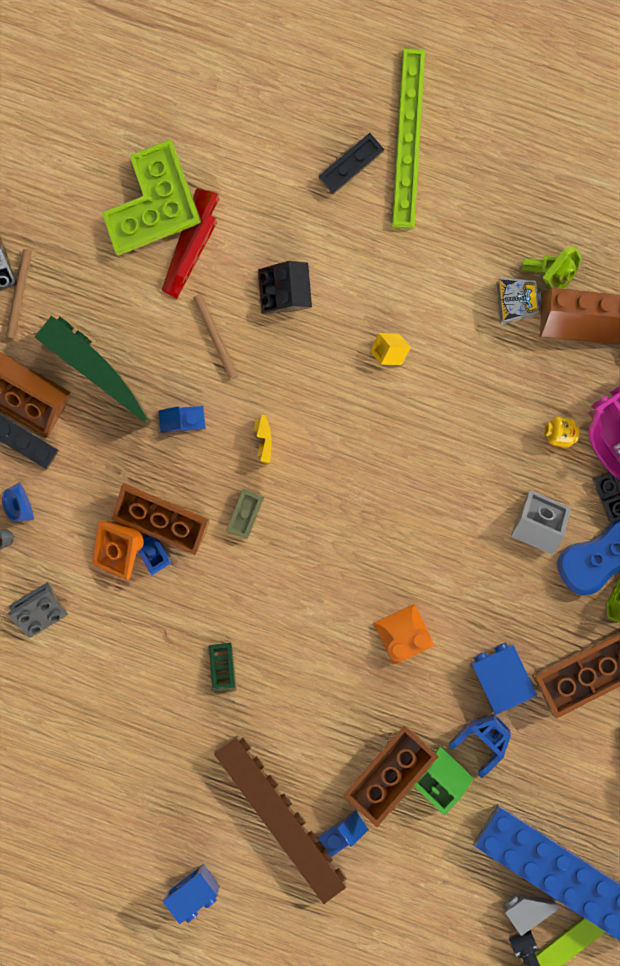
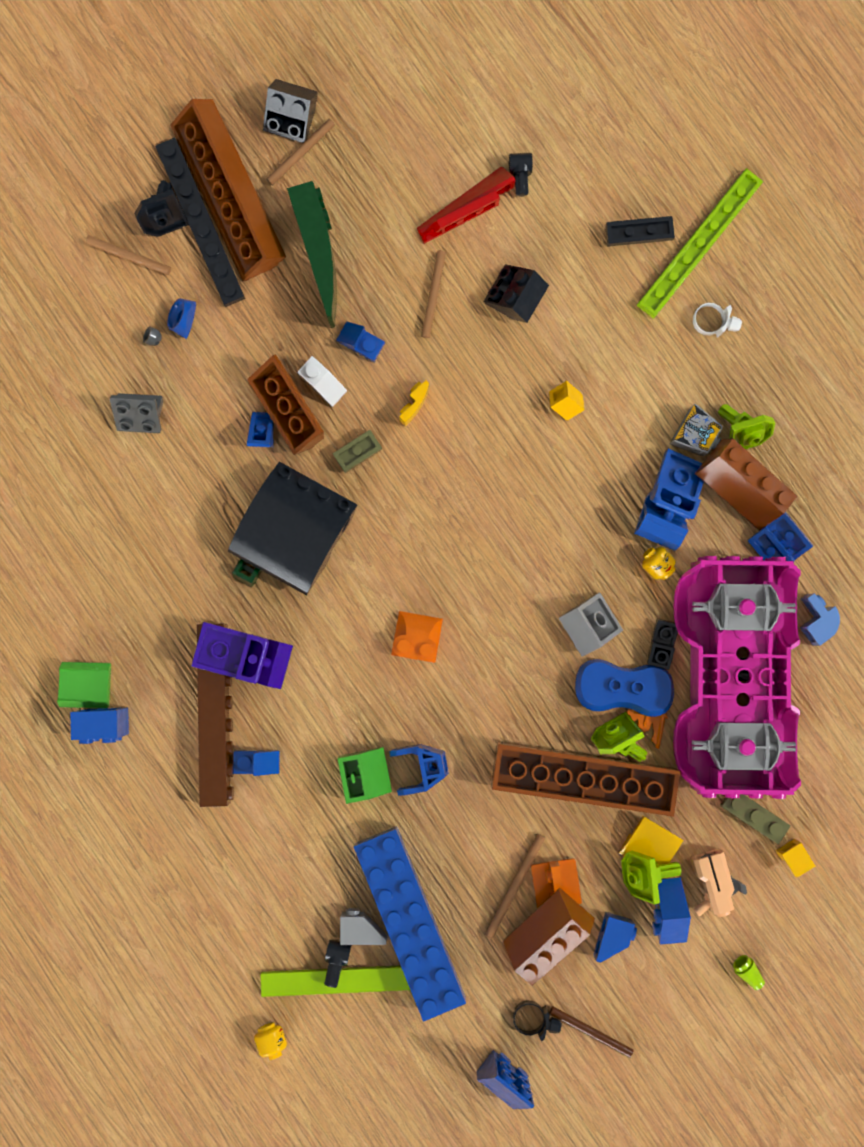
camera: 30 degrees right, 0 degrees up
(116, 548) = (235, 405): orange slope -> none
(154, 870) = (84, 685): none -> bright green slope
(162, 209) = (462, 162): lime plate -> none
(174, 476) = (321, 381): none -> white slope
(214, 180) = (521, 167): none -> black axle
(237, 617) = (292, 528): none -> black slope
(271, 753) = (242, 655): none -> dark purple piece
(391, 776) = (325, 741): dark orange slope -> none
(483, 188) = (732, 324): none -> white piece
(503, 678) = (472, 727): blue panel -> none
(536, 373) = (671, 501): none -> blue piece

